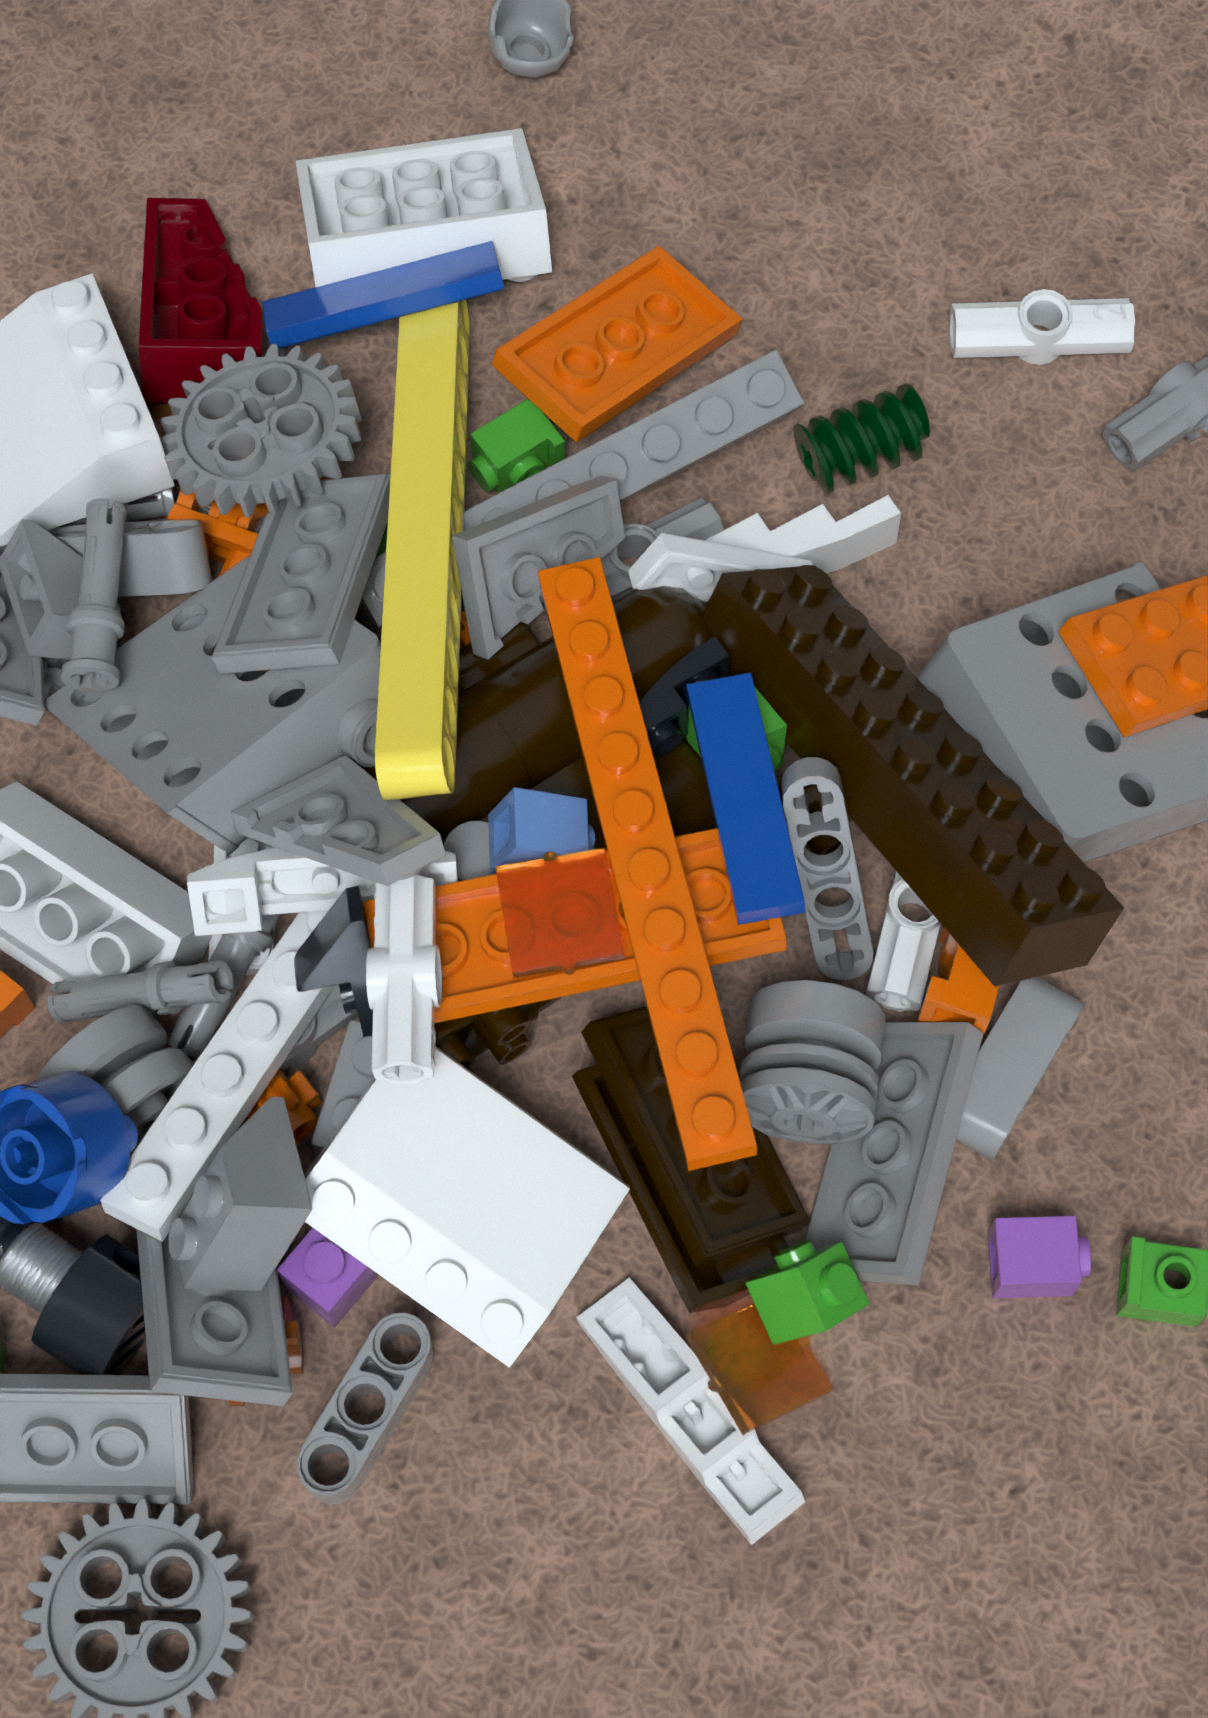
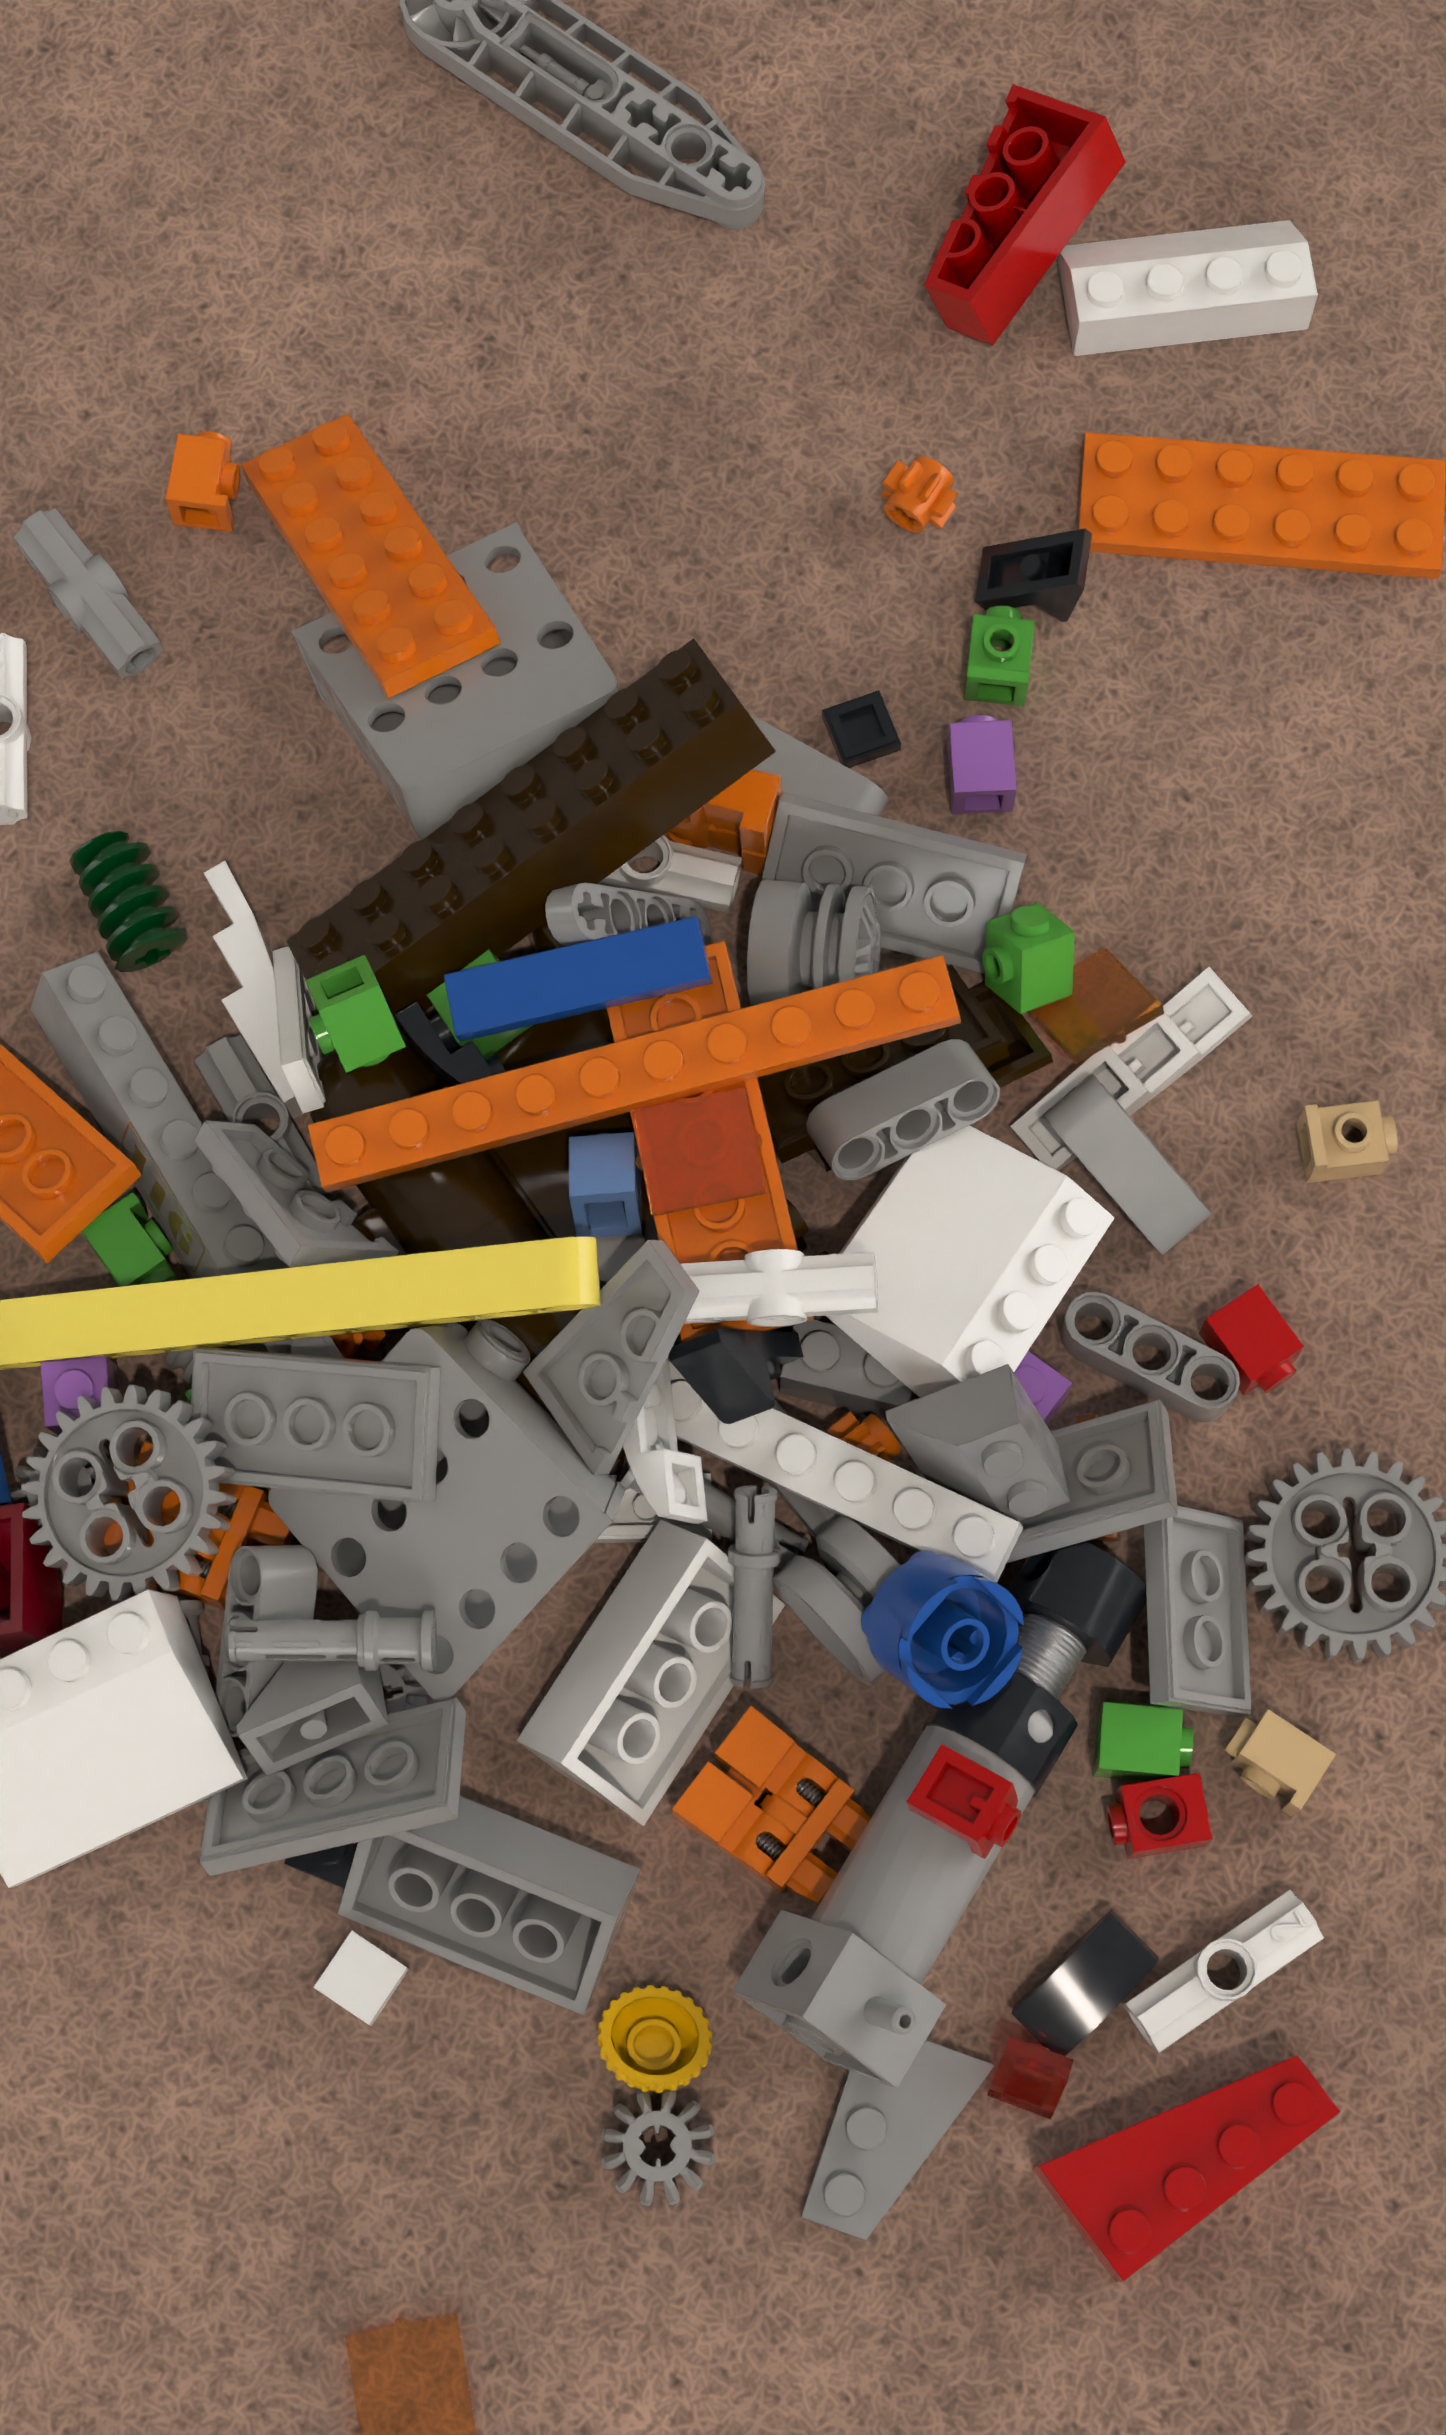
camera: 90 degrees left, 5 degrees up
(375, 397) = (71, 1378): none -> medium lavender brick
(377, 1521) = (1254, 1339): none -> red brick
(573, 1389) = (1127, 1164): none -> light grey beam
(609, 1610) = (1332, 1157): none -> tan brick
(624, 1141) = (902, 1109): none -> light grey beam
(712, 594) = (353, 1015): none -> bright green brick
(1078, 1138) = (861, 730): none -> black tile

